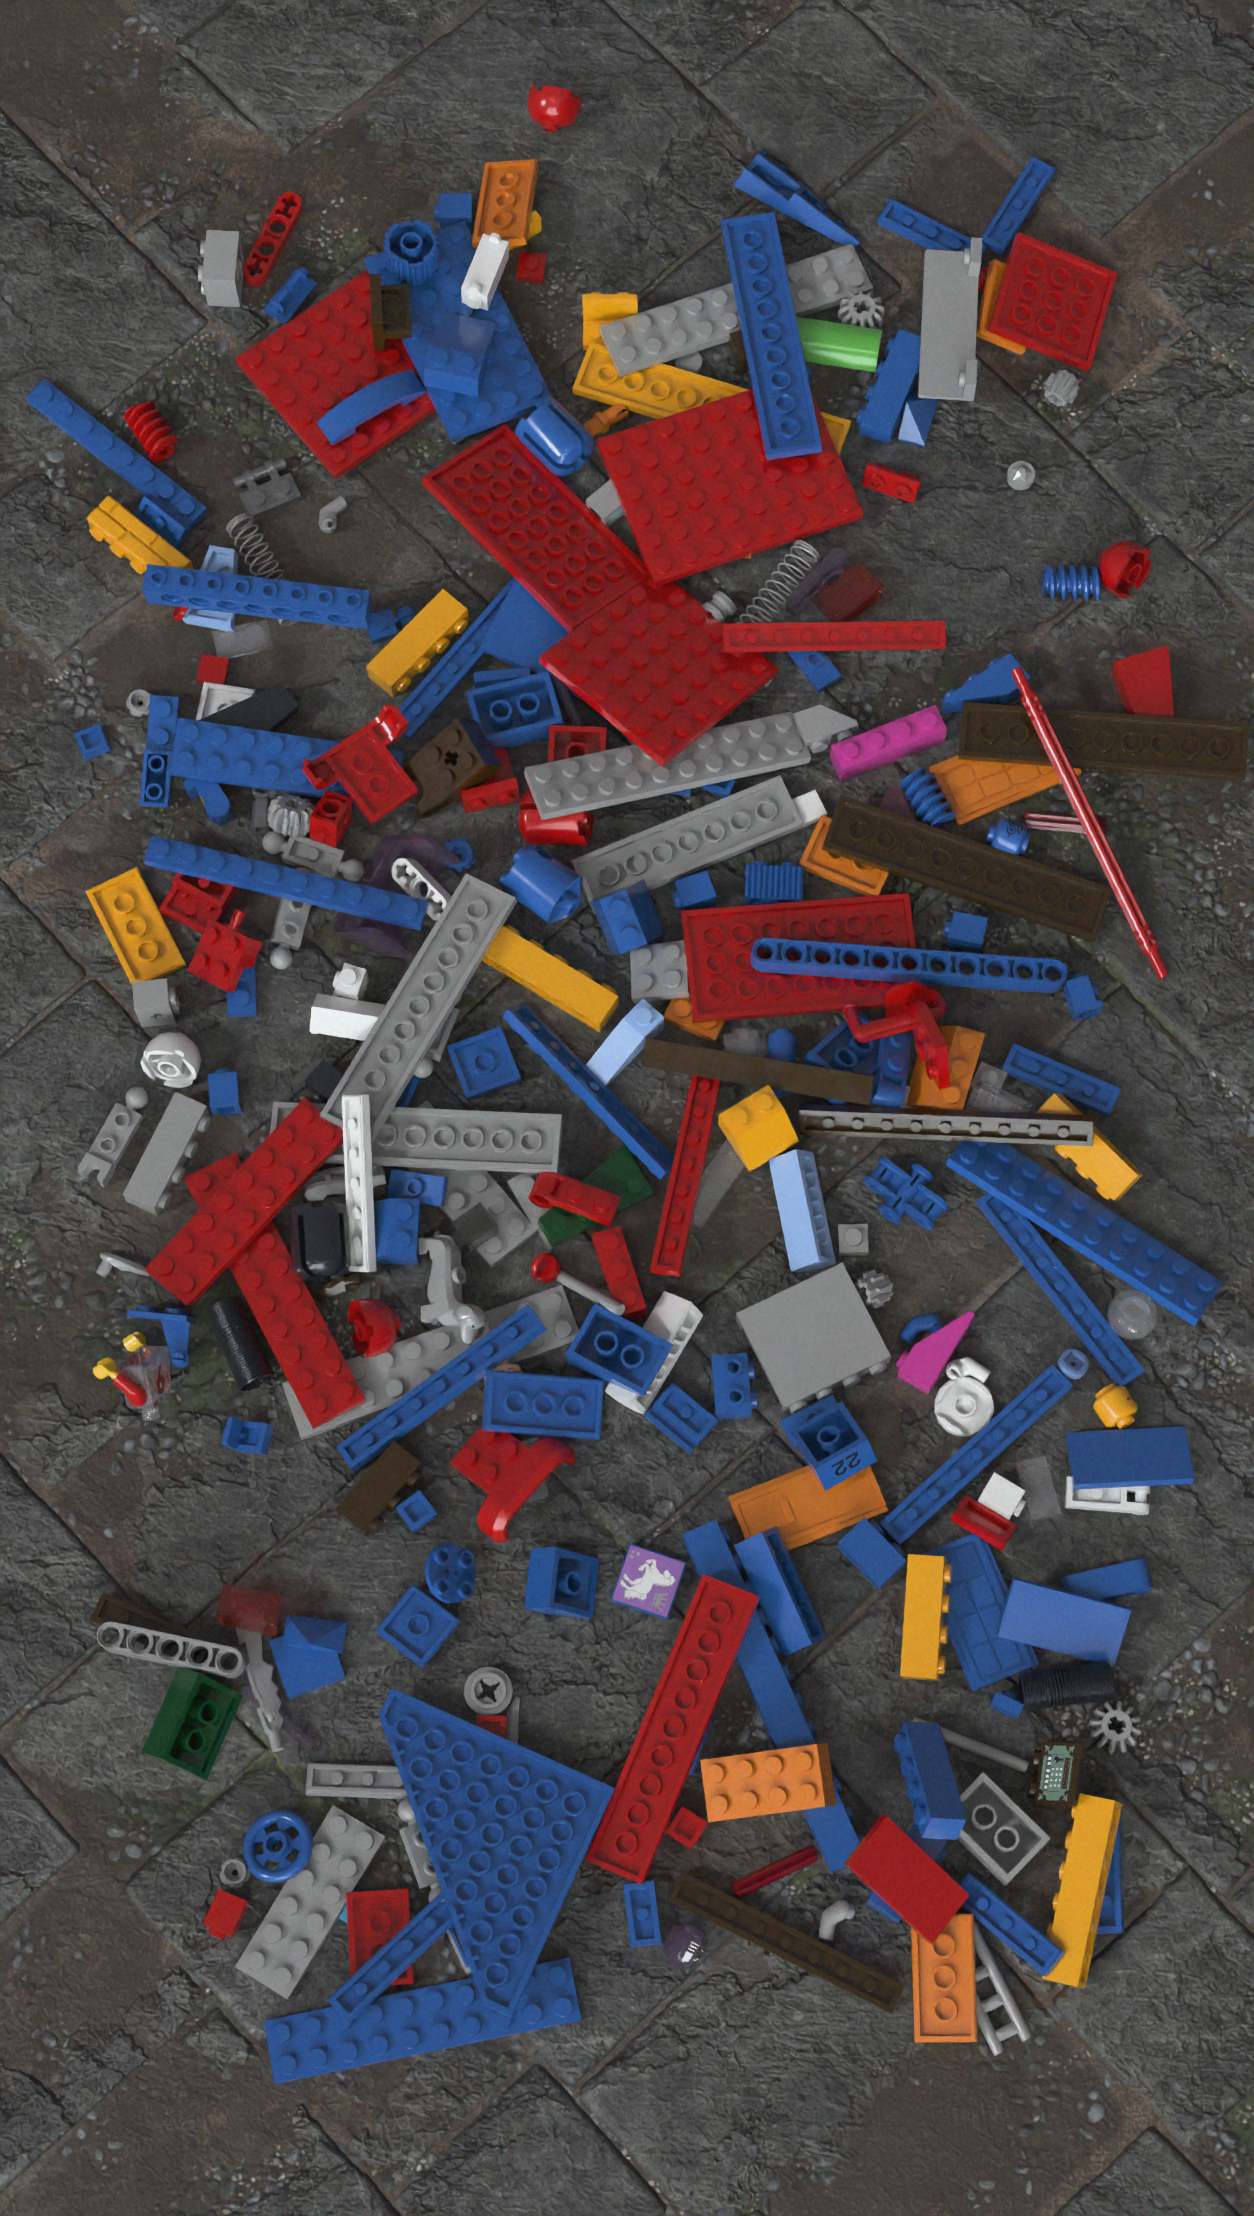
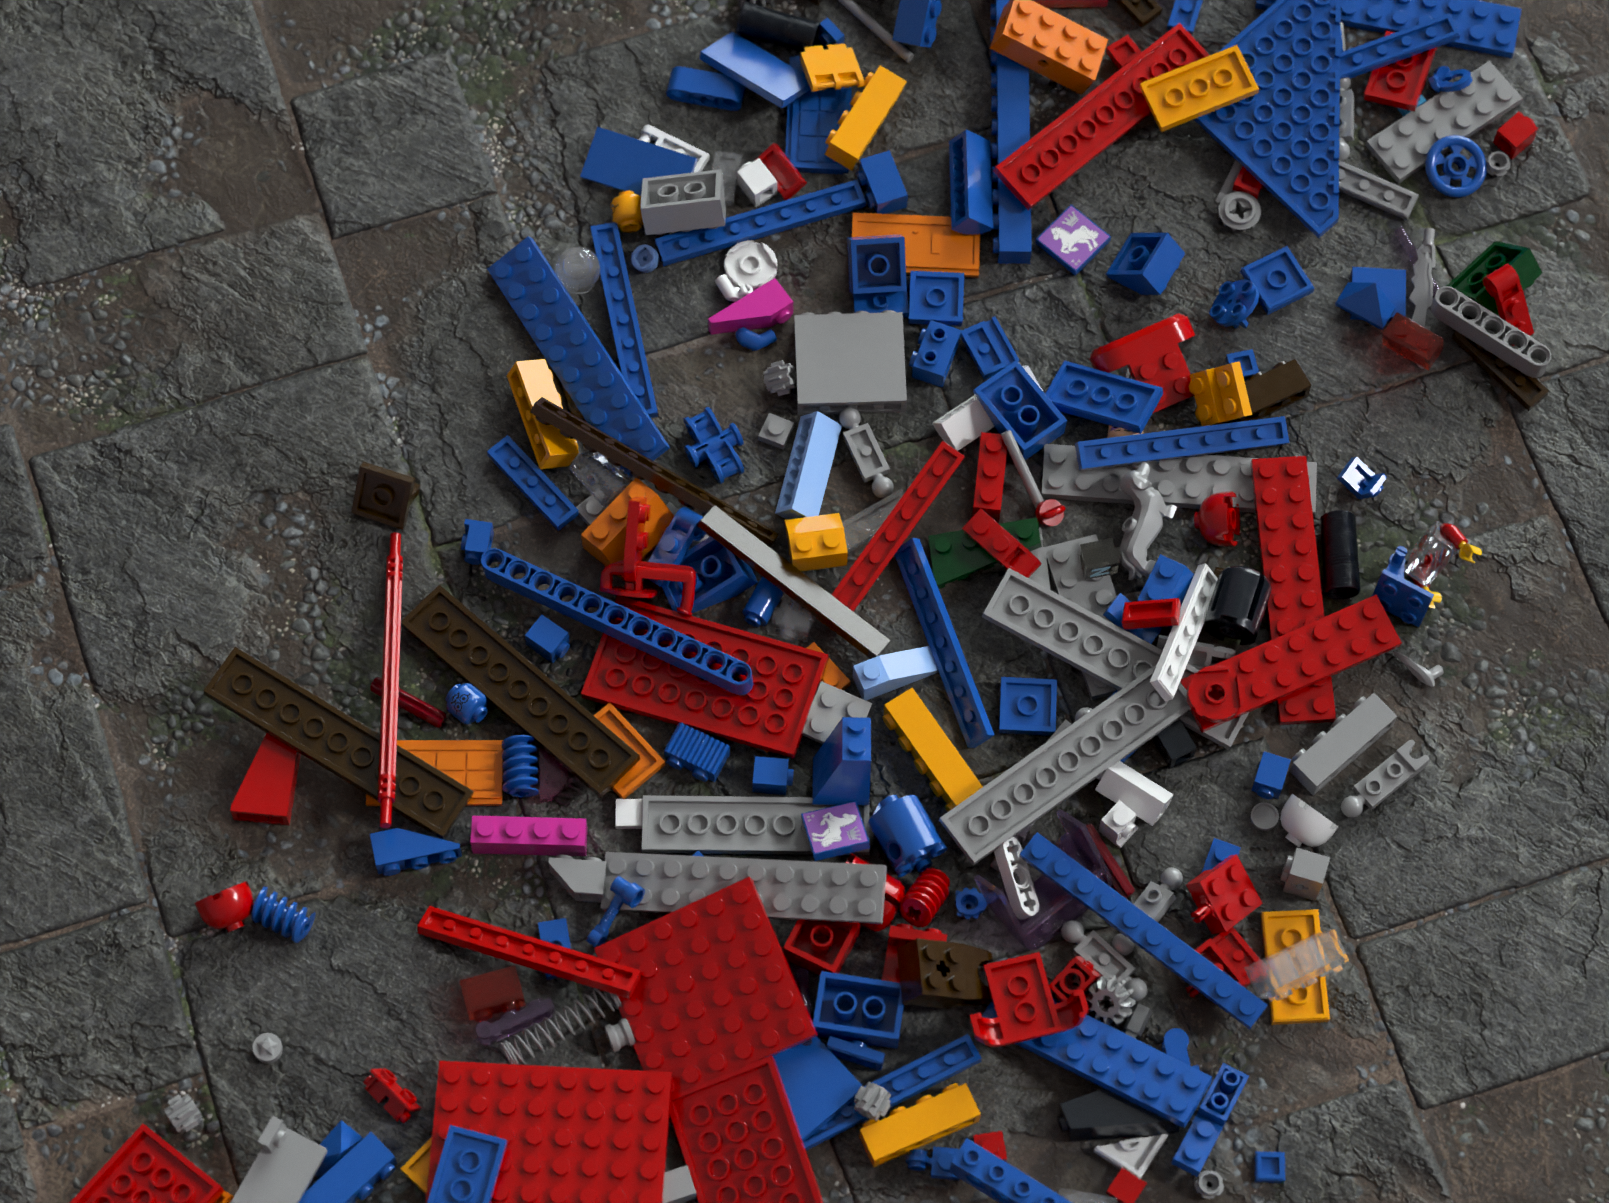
camera: 160 degrees left, 5 degrees down
(130, 905) = (1297, 965): none -> clear brick
(162, 1688) = (1509, 297): none -> red plate
(217, 1057) = (1264, 816): none -> light grey piece
(302, 1141) = (1215, 710): none -> red plate
(331, 1960) = (1443, 75): none -> blue piece
(348, 654) = (993, 1143): none -> red plate
(348, 949) = (1120, 881): none -> dark red axle
(398, 1184) = (1151, 613): none -> red tile
(424, 1452) = (1220, 394): none -> light orange plate
(466, 633) = (872, 1101): none -> light grey gear
(501, 832) = (925, 897): none -> red piece
(584, 1797) = (1199, 88): none -> light orange plate
(608, 855) = (835, 831): none -> tile
(752, 1251) = (866, 452): none -> light grey plate
(759, 1449) = (936, 298): none -> blue plate
(773, 717) = (626, 893): none -> blue brick
(986, 1653) = (831, 67): none -> light orange plate
(1063, 1430) = (683, 202): none -> light grey slope
(1194, 1005) = (384, 495): none -> dark brown bracket

